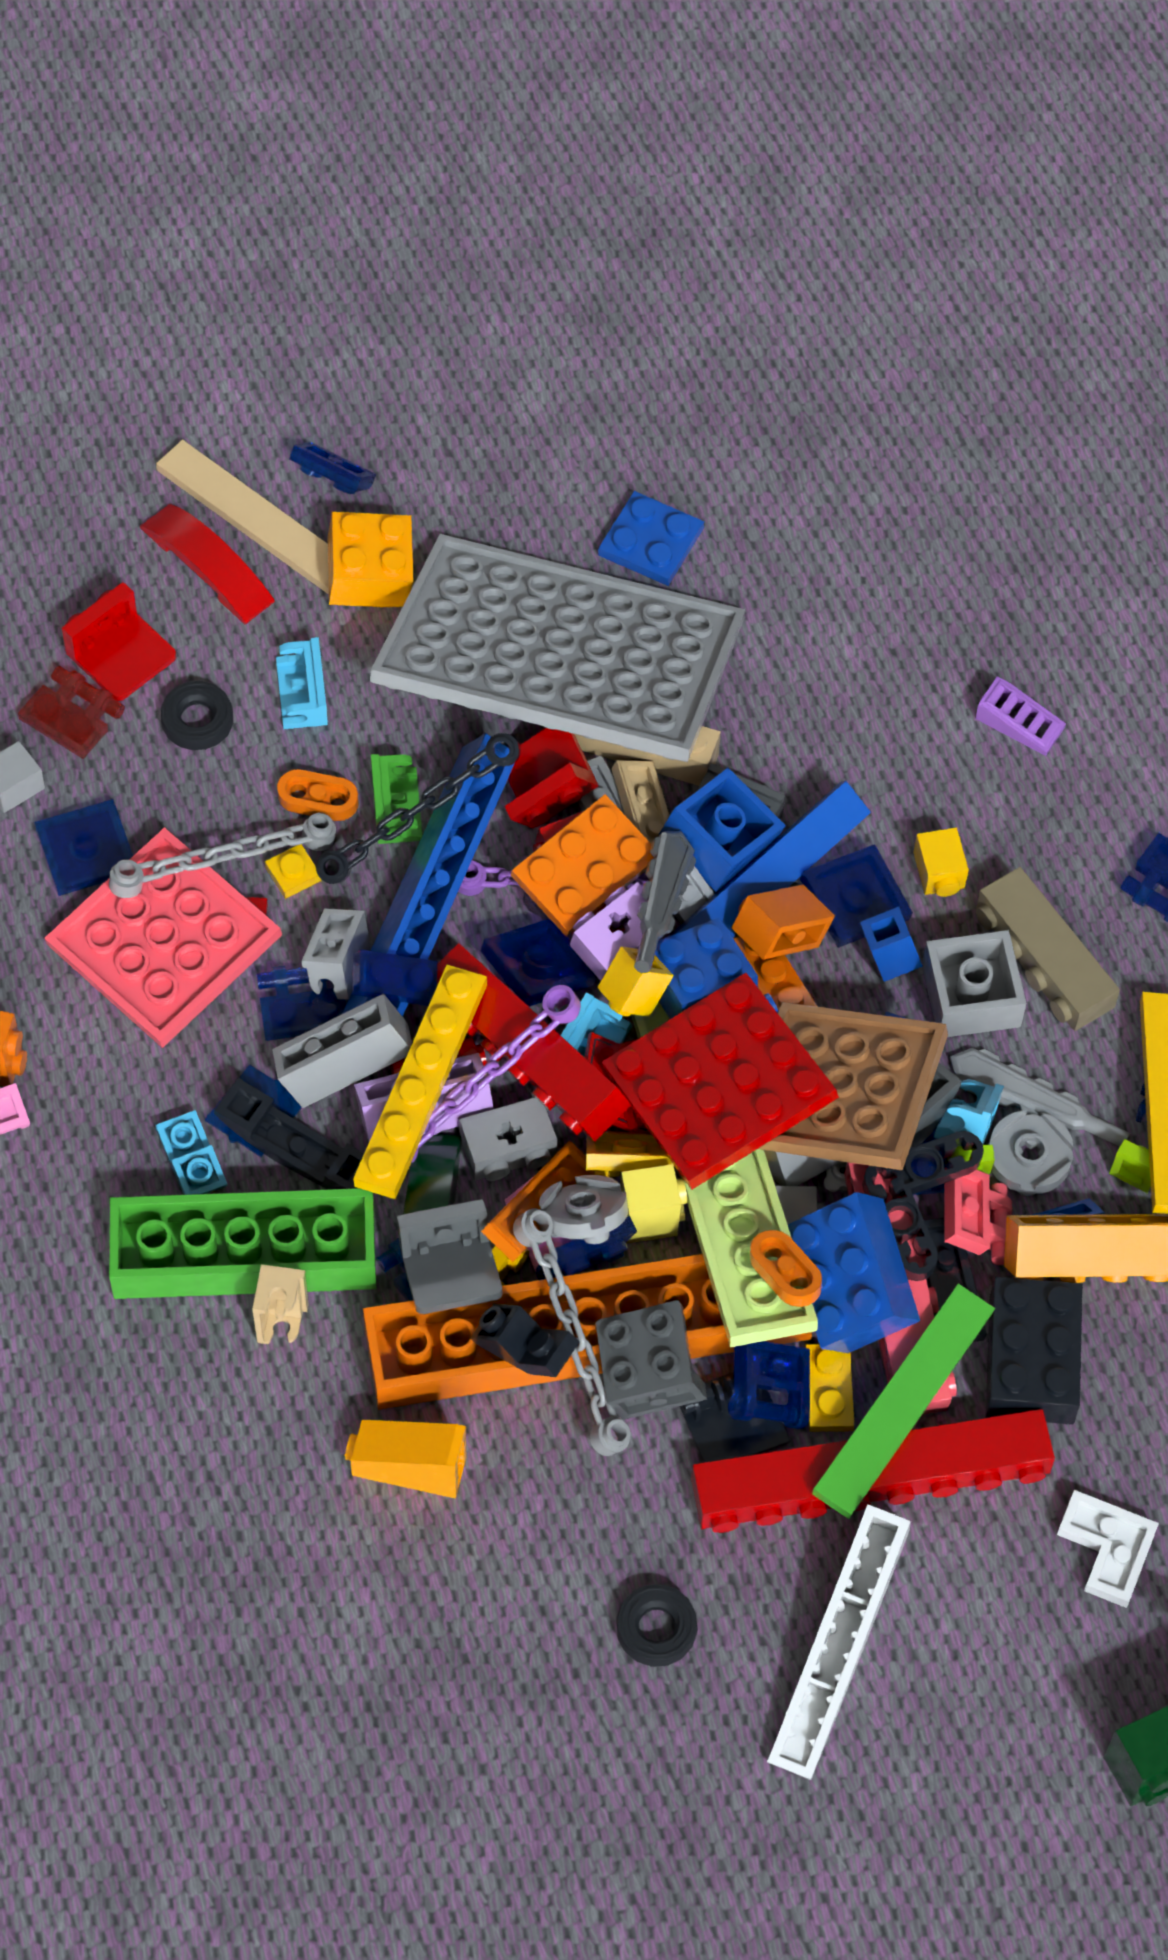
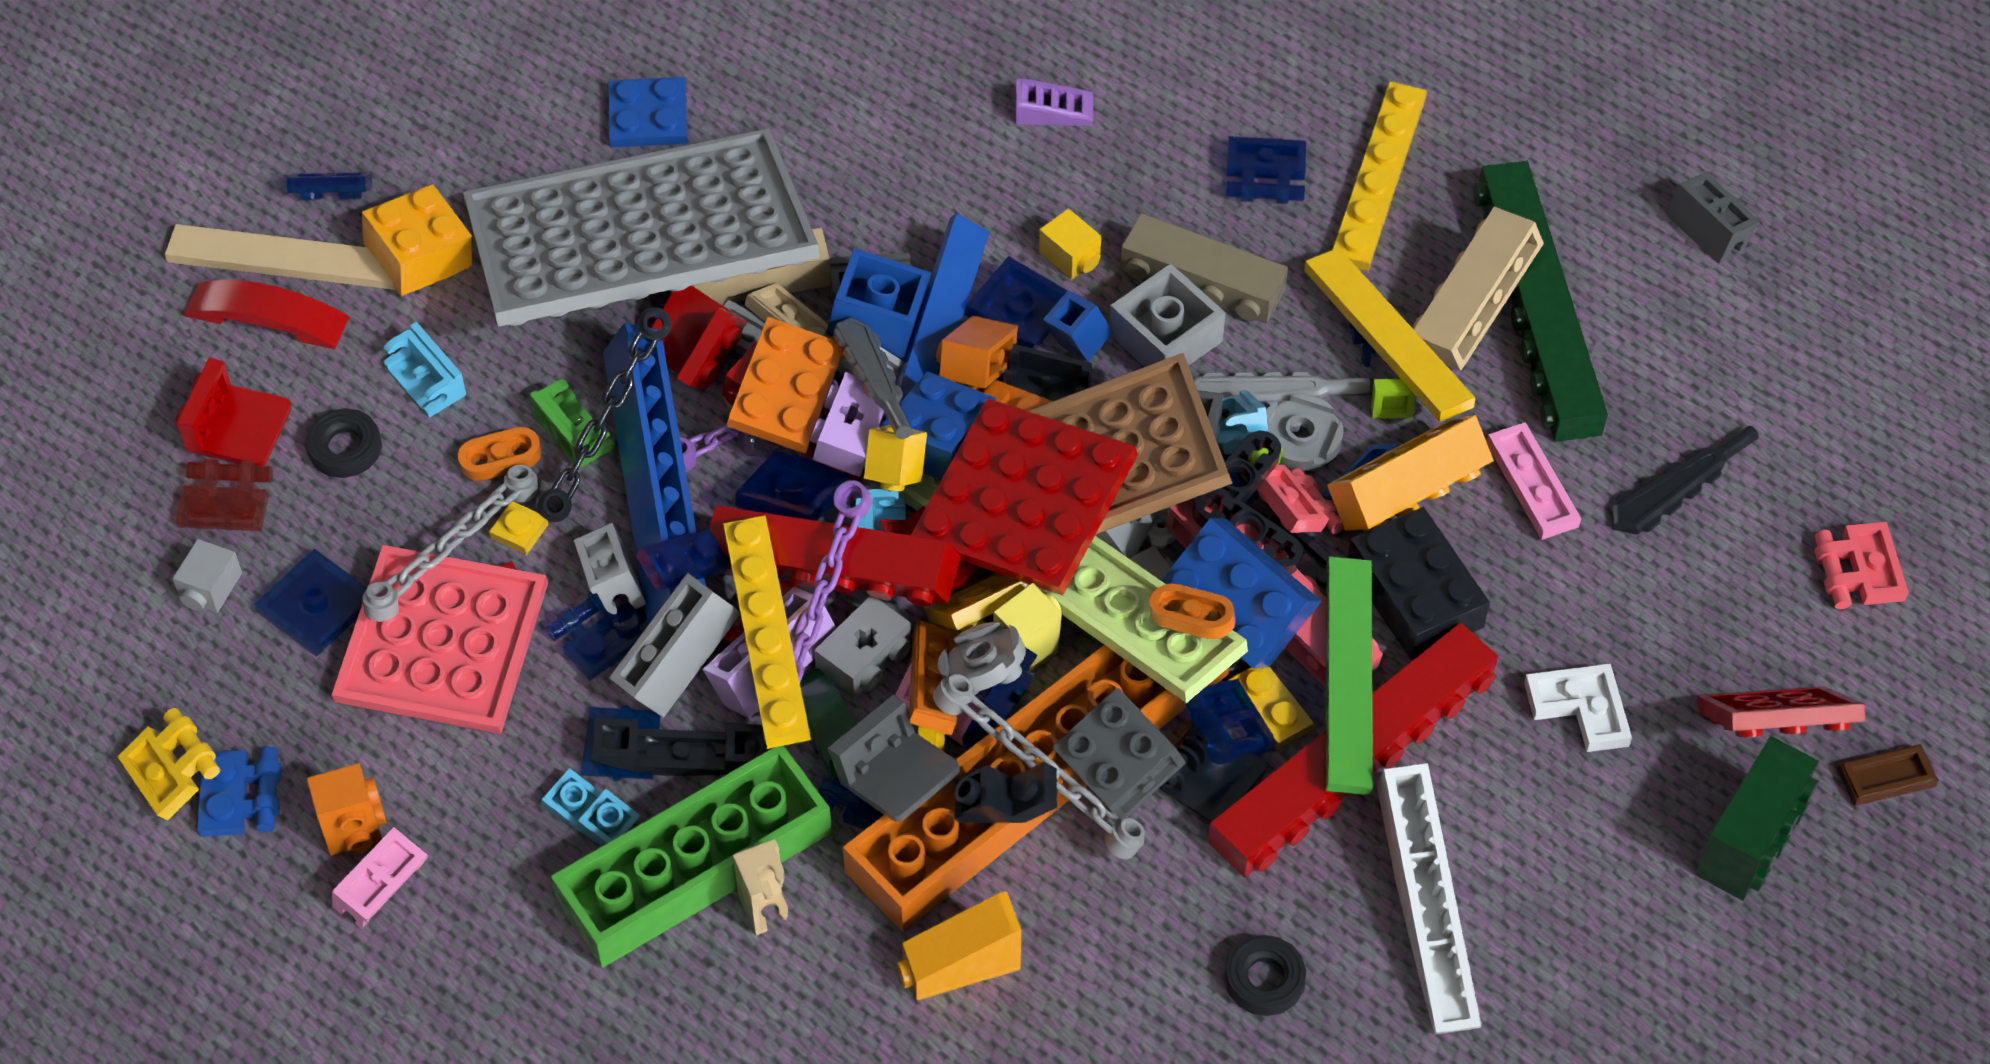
camera: 30 degrees left, 5 degrees down
(832, 977) = (1046, 373): none -> black hinge

